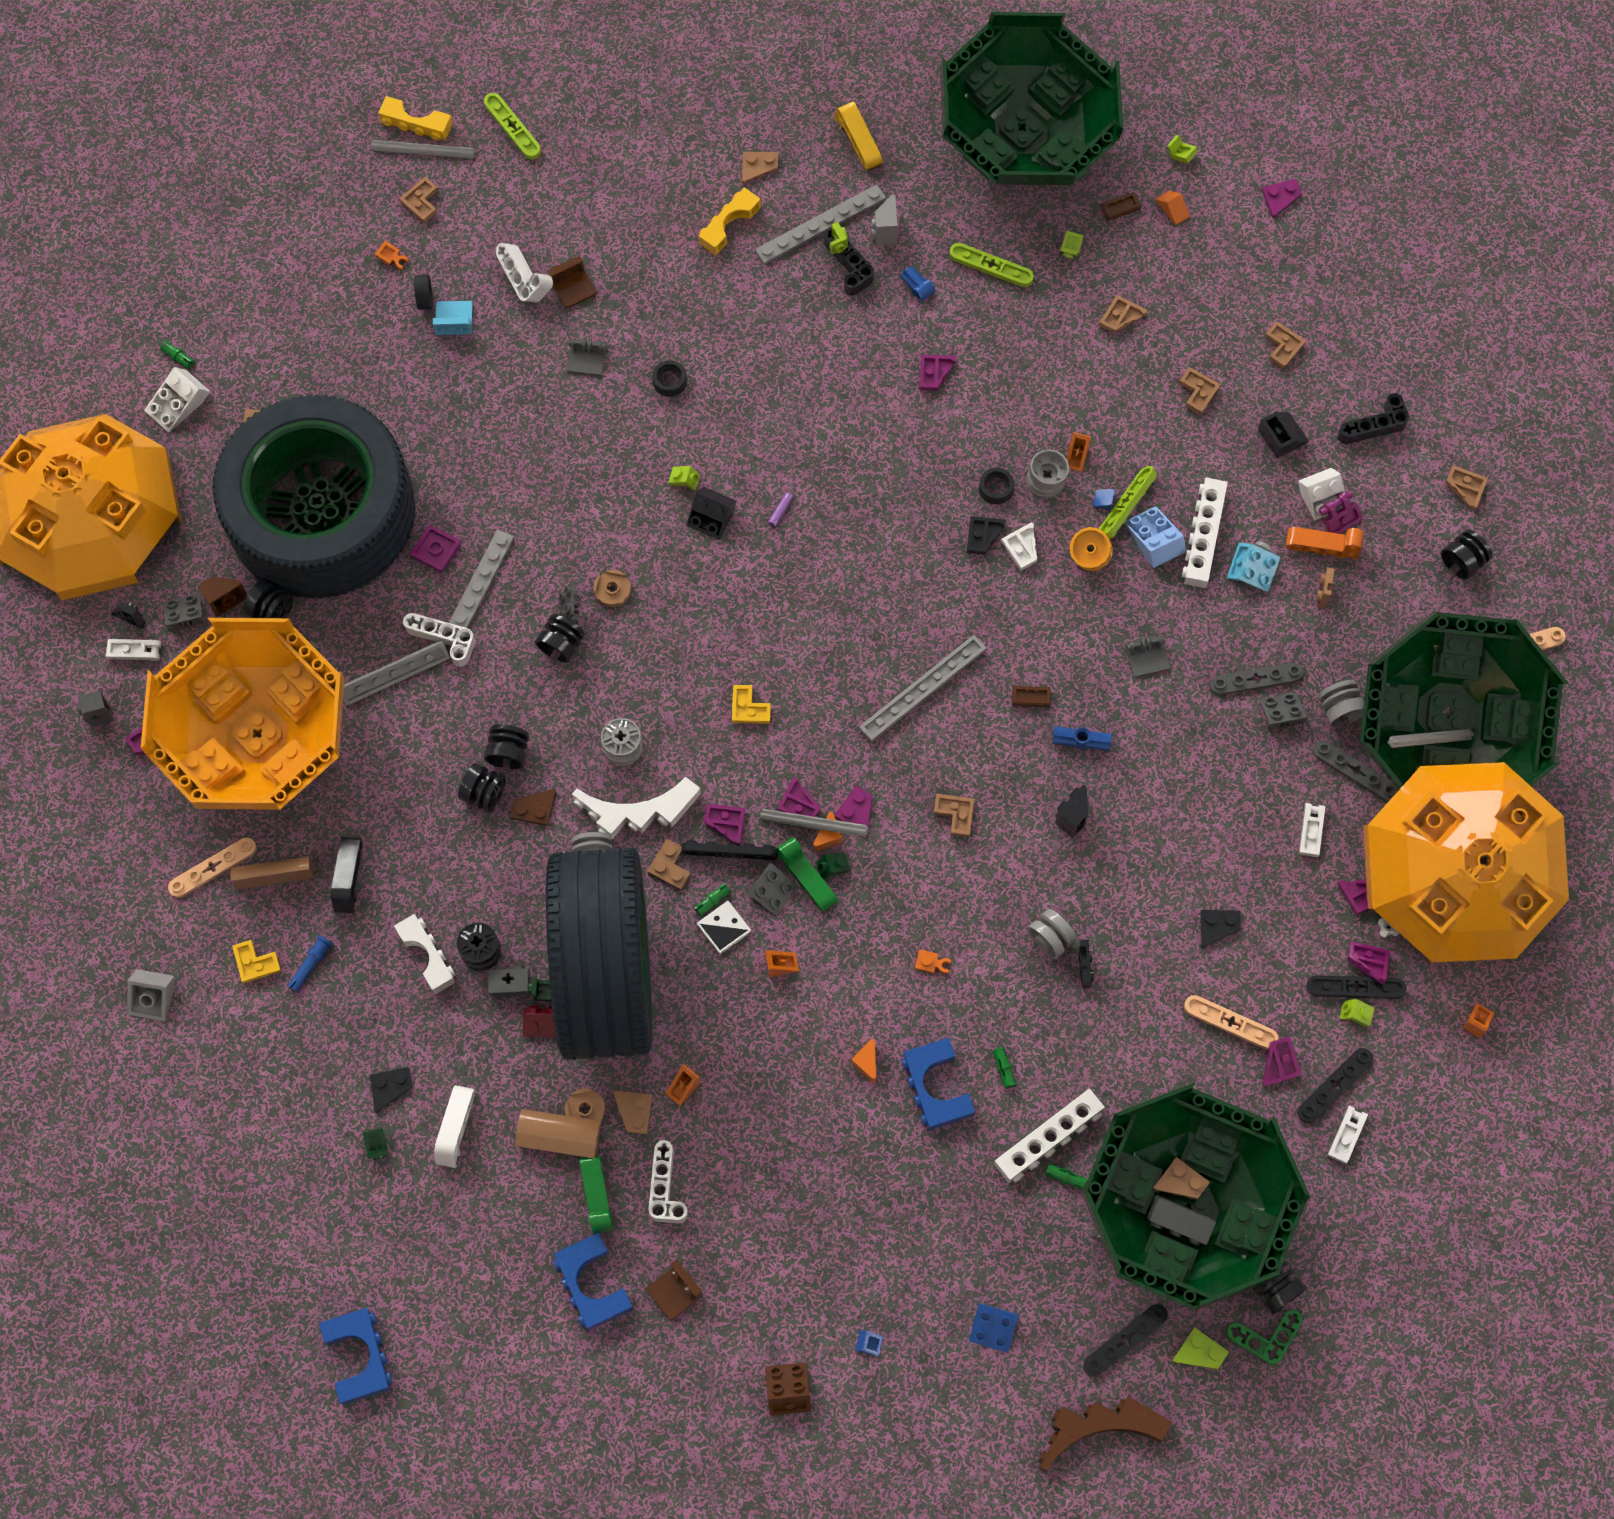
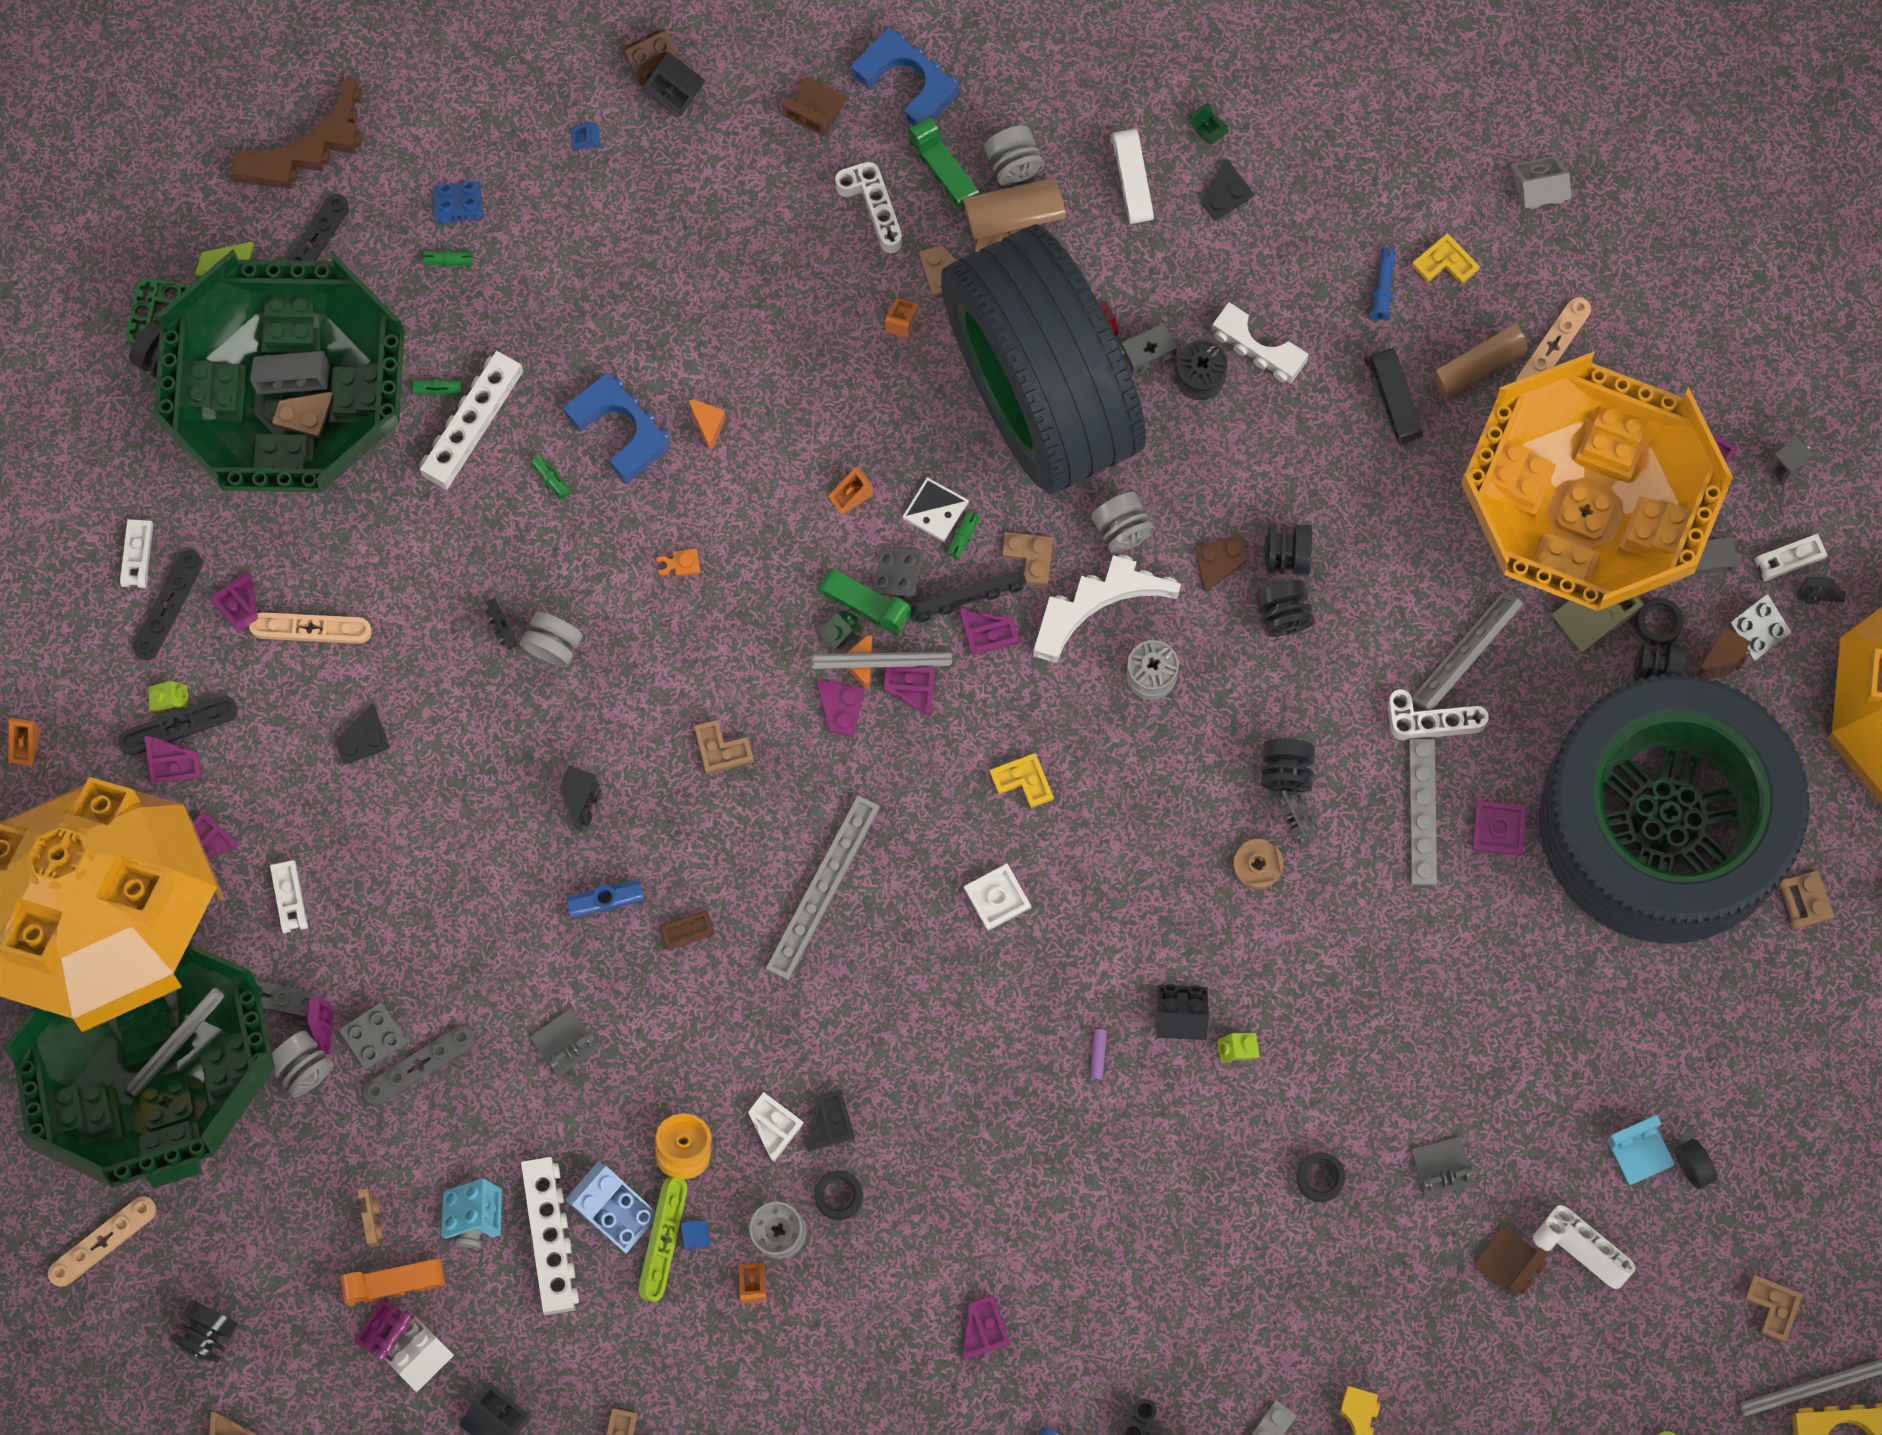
camera: 155 degrees right, 5 degrees up
(389, 254) = (1772, 1207): orange plate -> none
(538, 1173) = (1014, 155): none -> light grey wheel
(781, 1350) = (673, 85): none -> black slope
(803, 635) = (997, 897): none -> white plate
(1018, 1281) = (448, 258): none -> green pin
(1318, 729) = (320, 1021): none -> magenta wing

